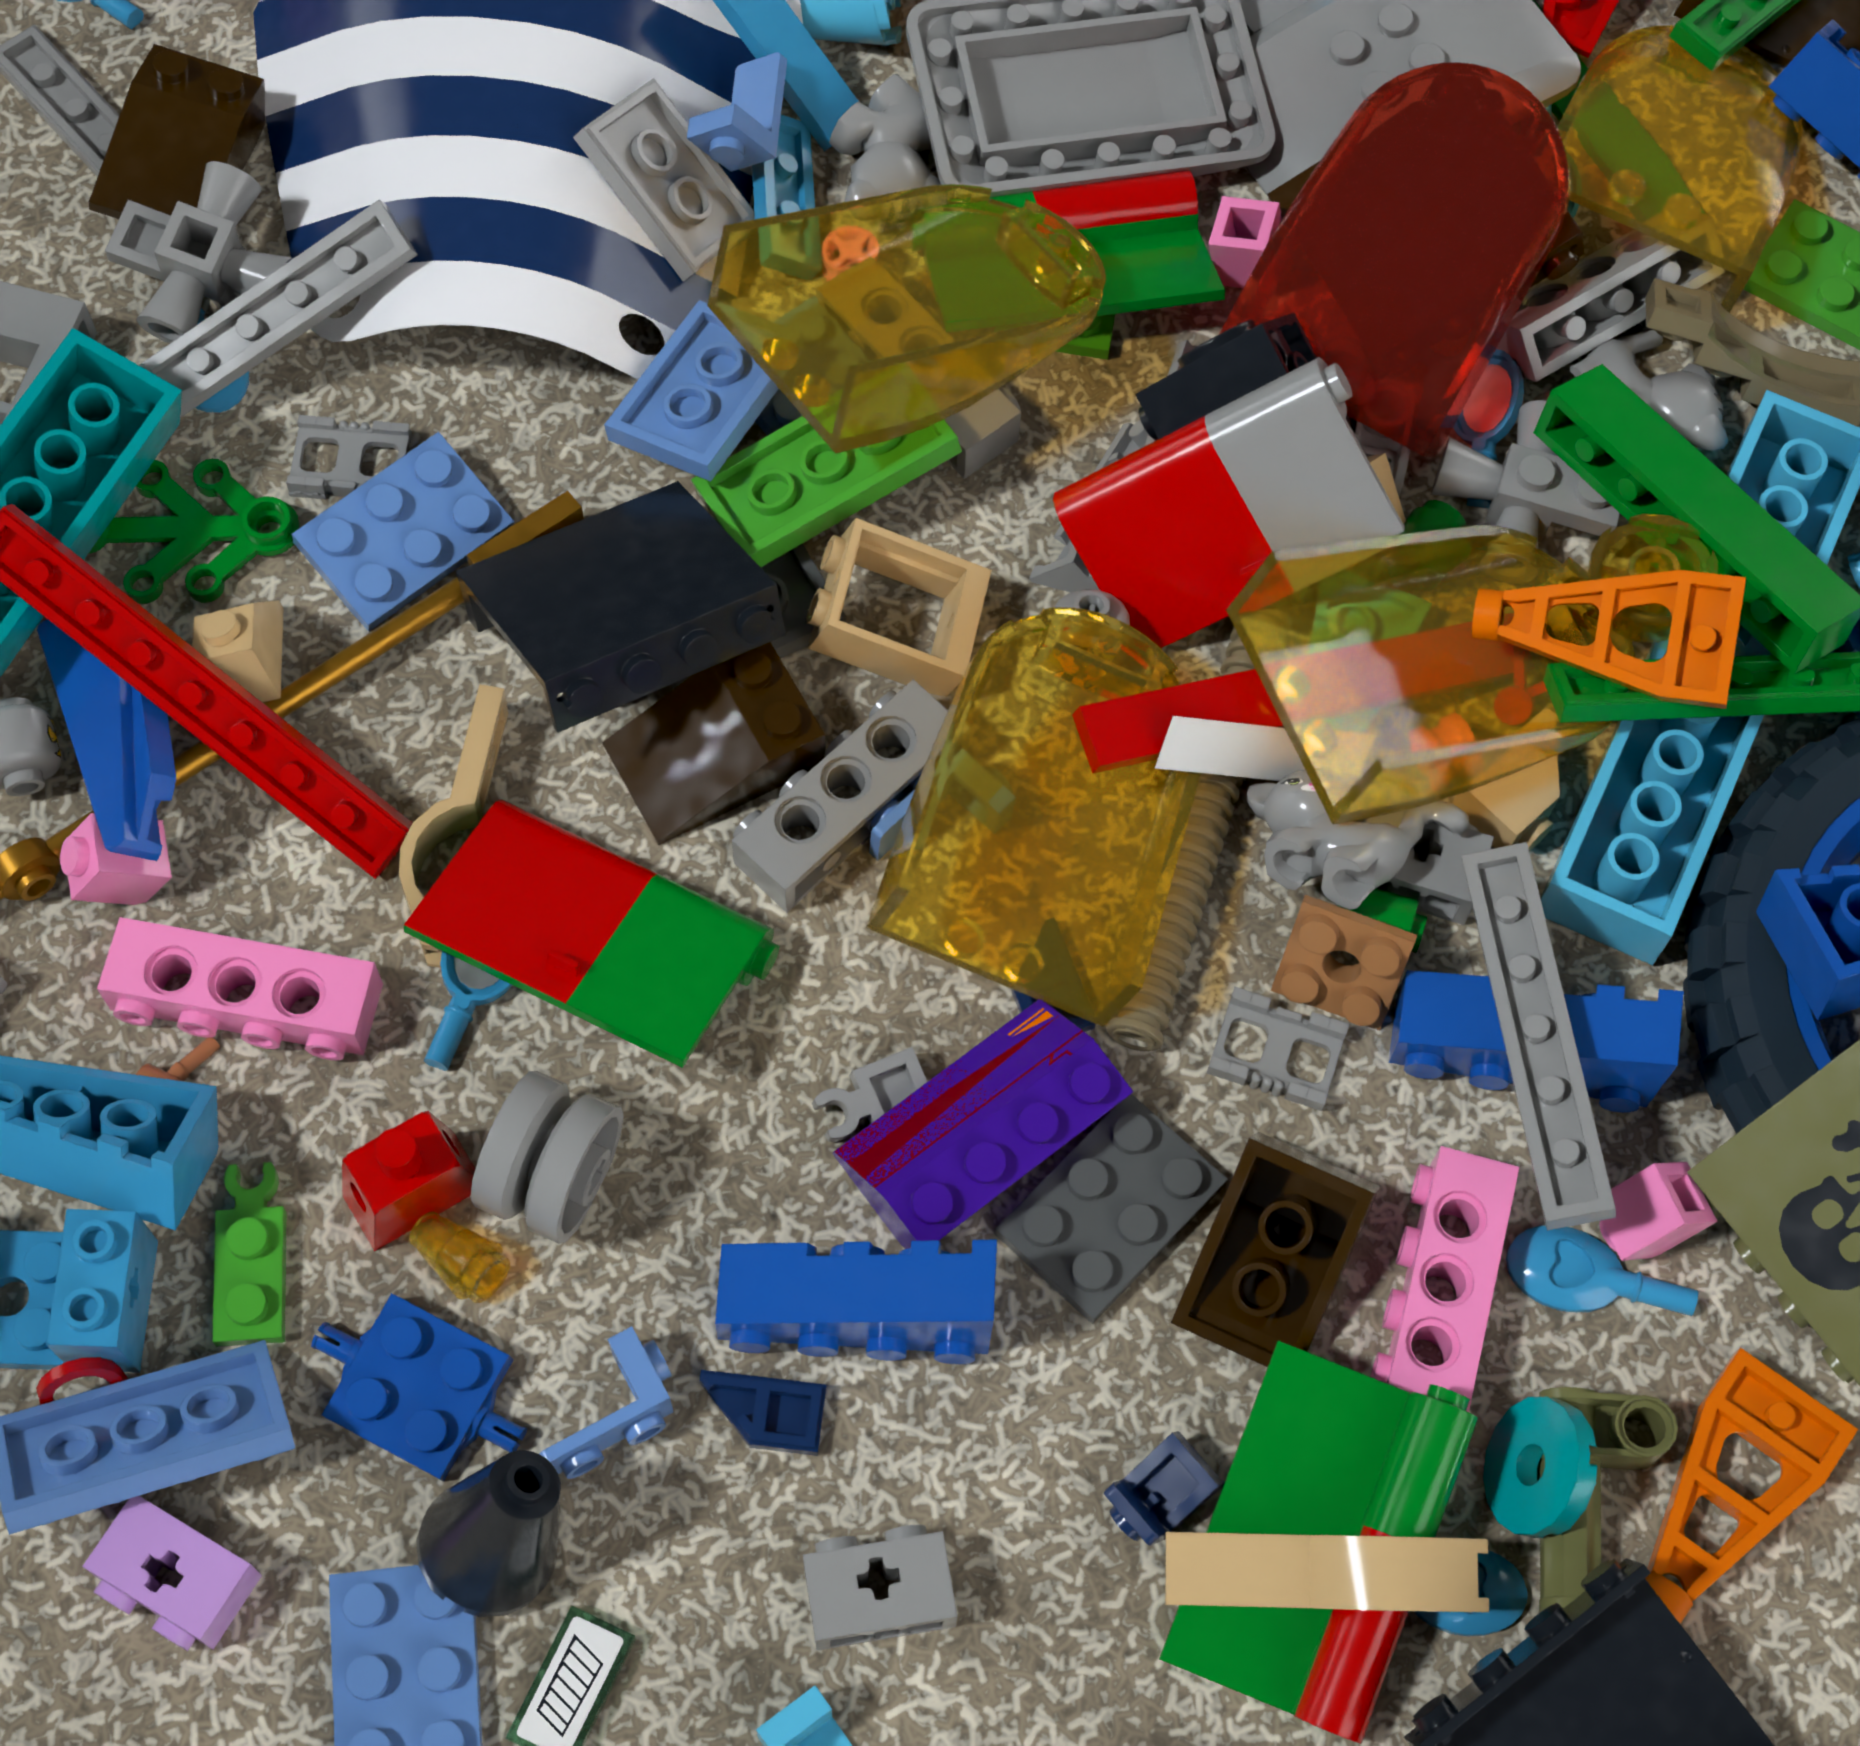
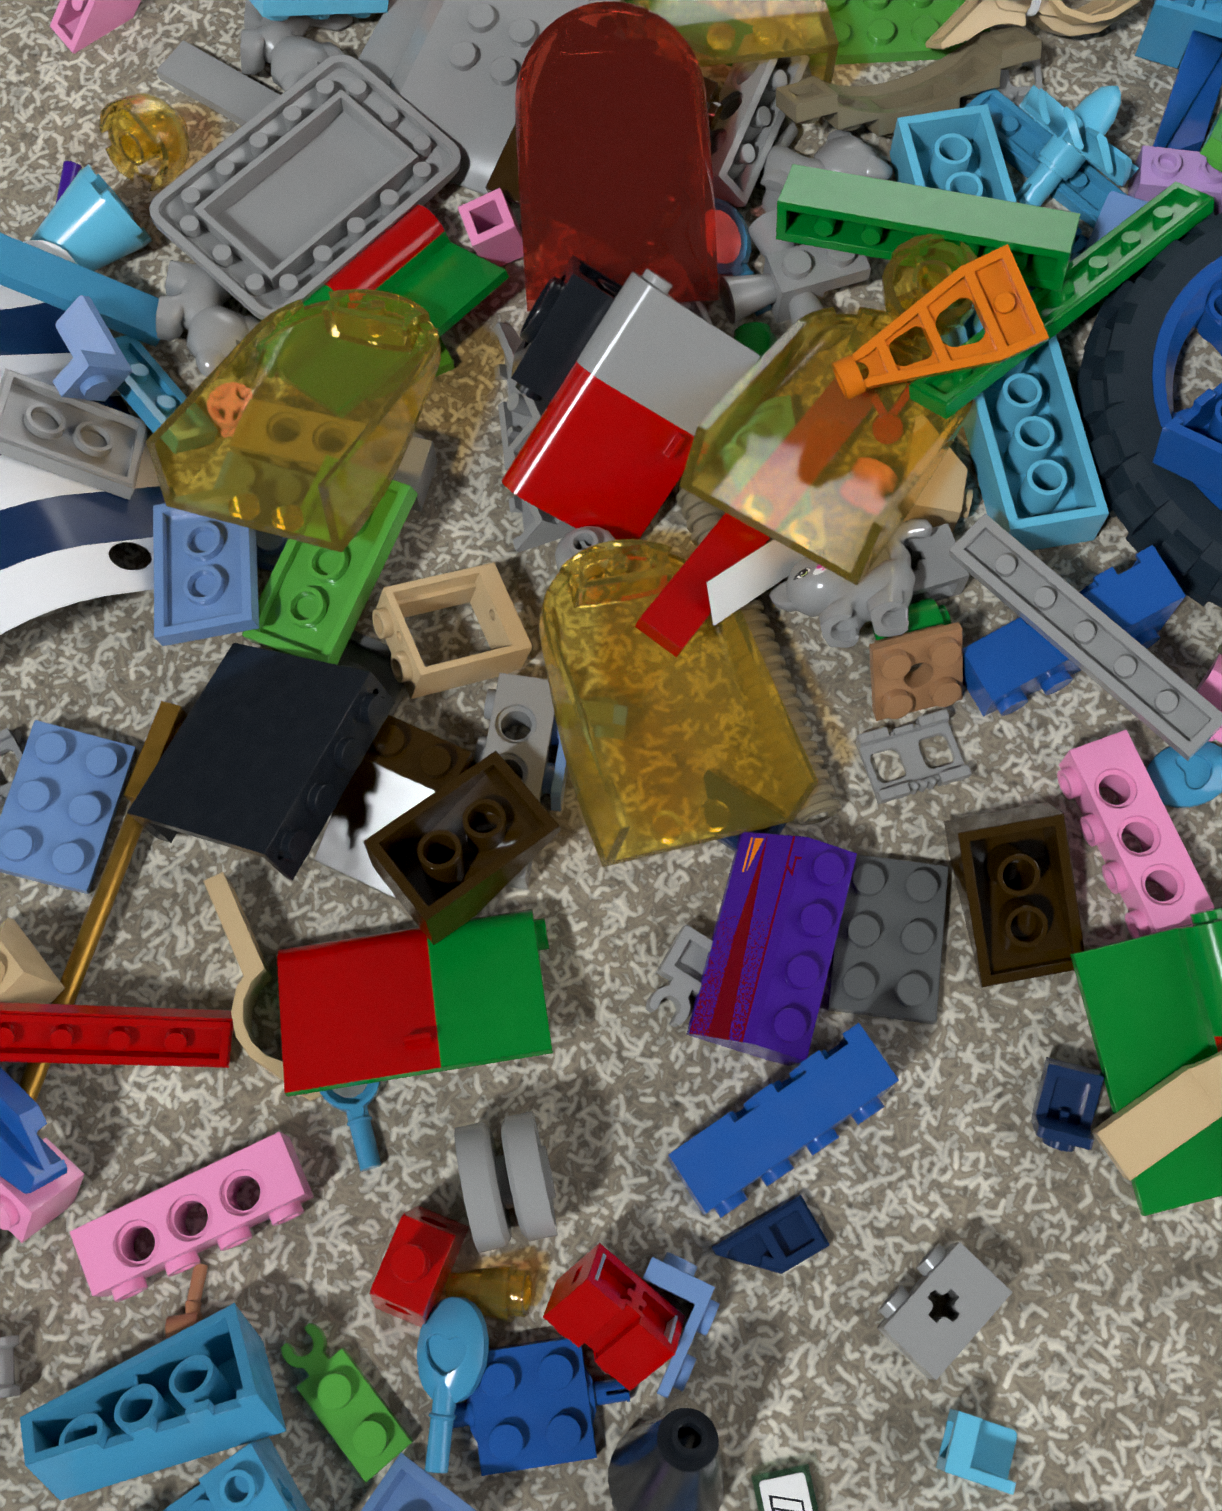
camera: 30 degrees left, 5 degrees up
(367, 1292) = (450, 1367): none -> dark azure piece
(553, 1354) = (615, 1316): none -> red piece
(743, 811) = (461, 846): none -> dark brown slope

